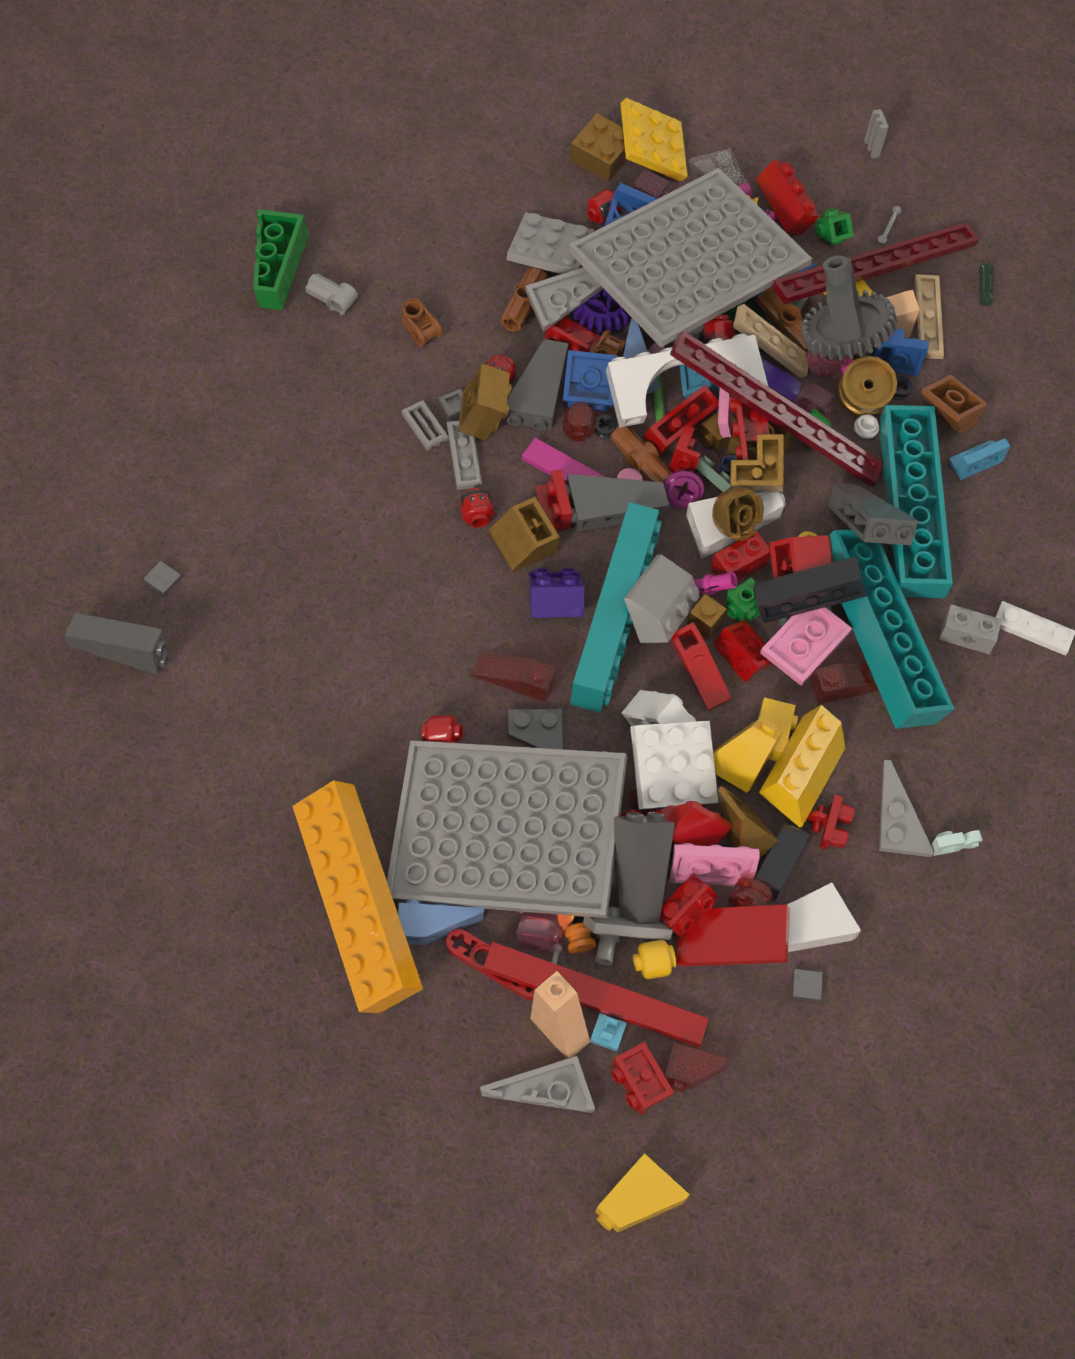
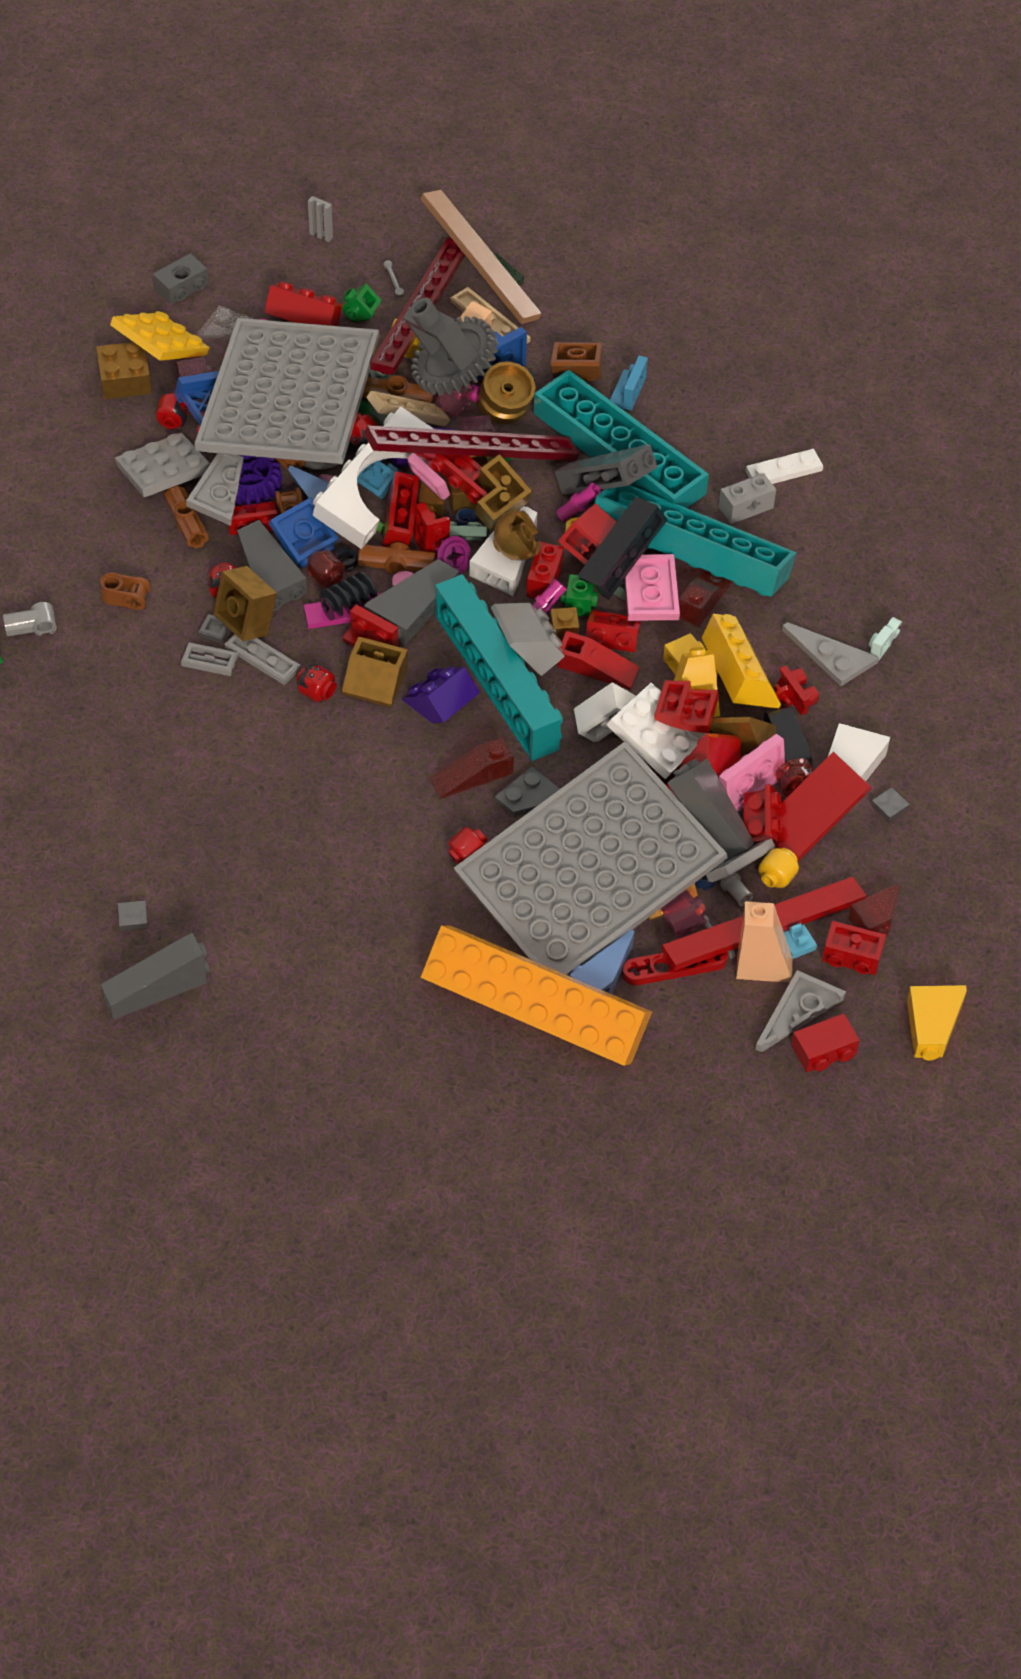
camera: 40 degrees left, 10 degrees down
(532, 1136) = (825, 1043): none -> red brick
(567, 456) = (345, 593): none -> black piece
(579, 938) = (714, 897): orange wheel -> none
(713, 765) = (686, 707): none -> red slope
(722, 105) = (180, 279): none -> dark grey brick
(825, 523) = (578, 502): none -> dark pink pin
(866, 426) = (530, 422): white plate -> none
(973, 258) = (481, 256): none -> medium nougat tile

